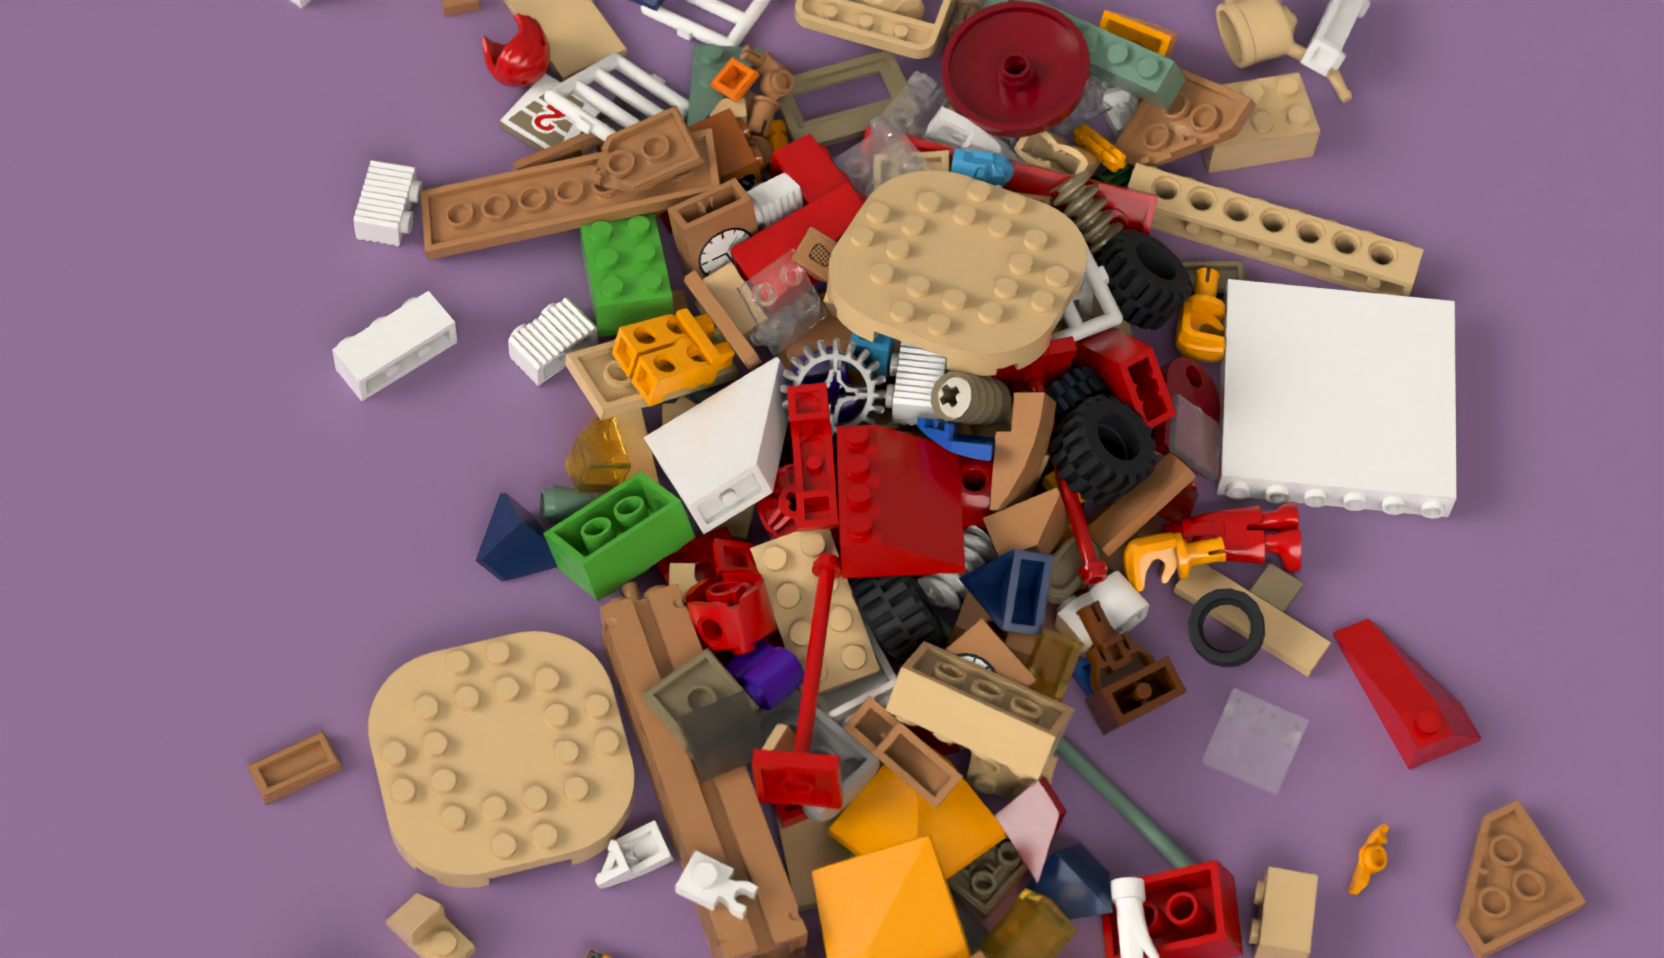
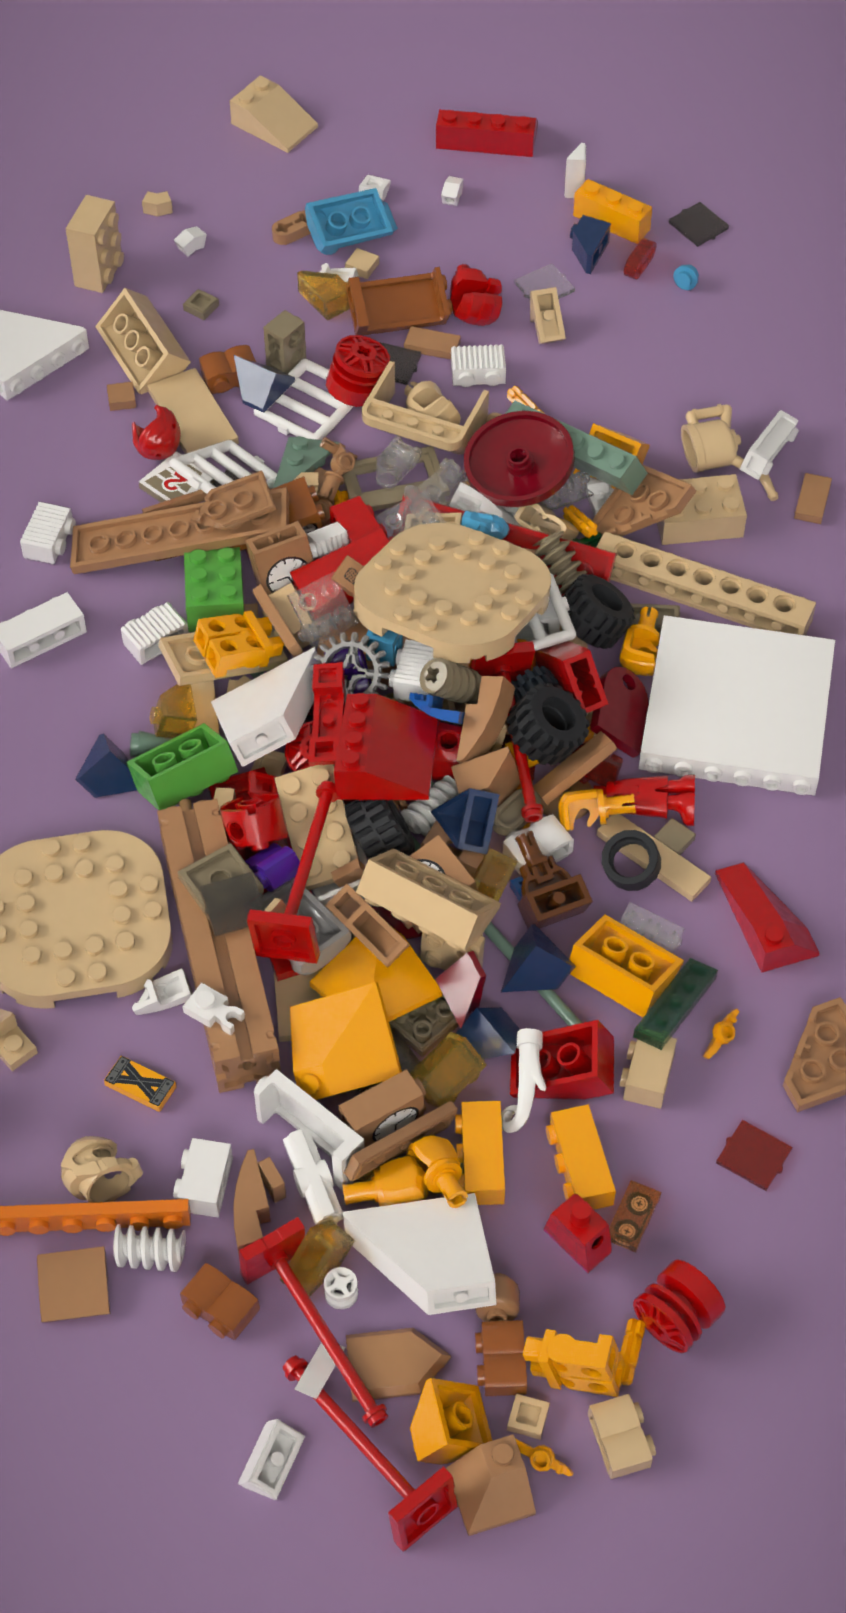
camera: 10 degrees right, 5 degrees down
(734, 80) = (311, 459): orange slope -> none
(850, 74) = (396, 462): none -> clear piece
(868, 677) = (348, 873): none -> medium nougat tile
(1121, 782) = (536, 964): none -> dark blue slope
(1195, 438) = (623, 724): clear piece -> none
(1235, 776) = (623, 965): none -> light orange slope
(1308, 825) = (675, 1004): none -> clear green tile
(1397, 97) = (813, 498): none -> medium nougat tile

